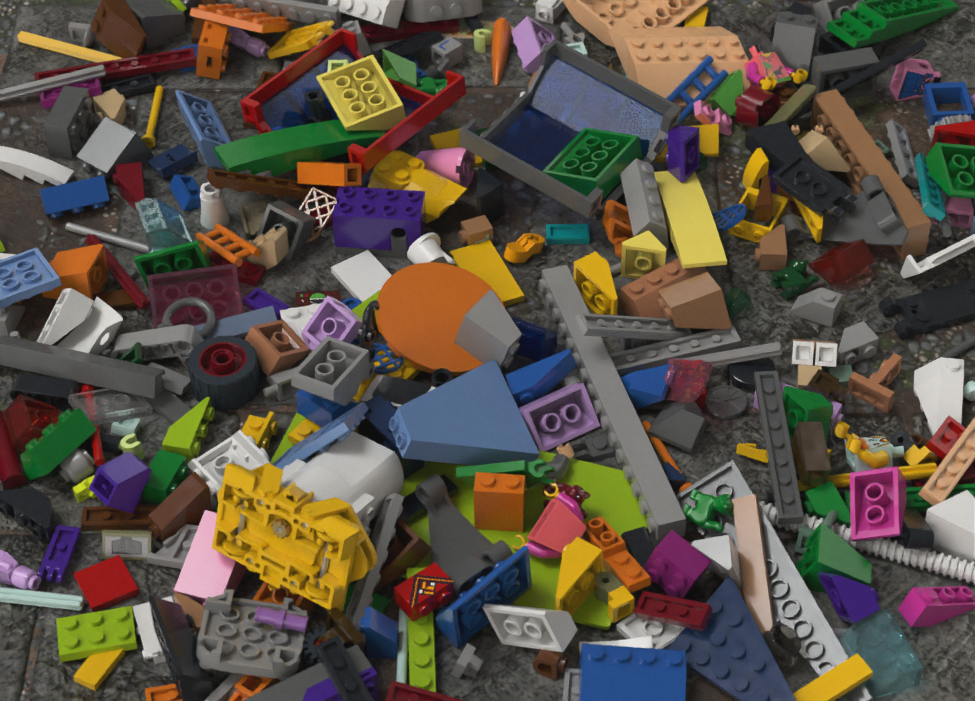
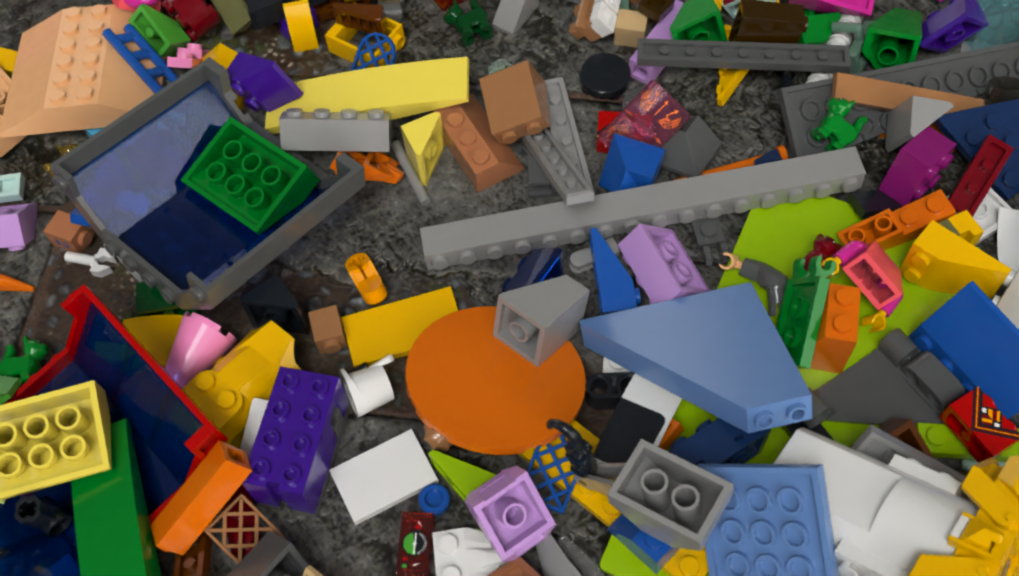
camera: 80 degrees left, 15 degrees up
(567, 234) = (345, 231): teal tile -> none
(596, 284) = (472, 194): yellow slope -> none
(740, 354) = (592, 93): light grey axle -> none
(772, 250) = (422, 31): medium nougat slope -> none

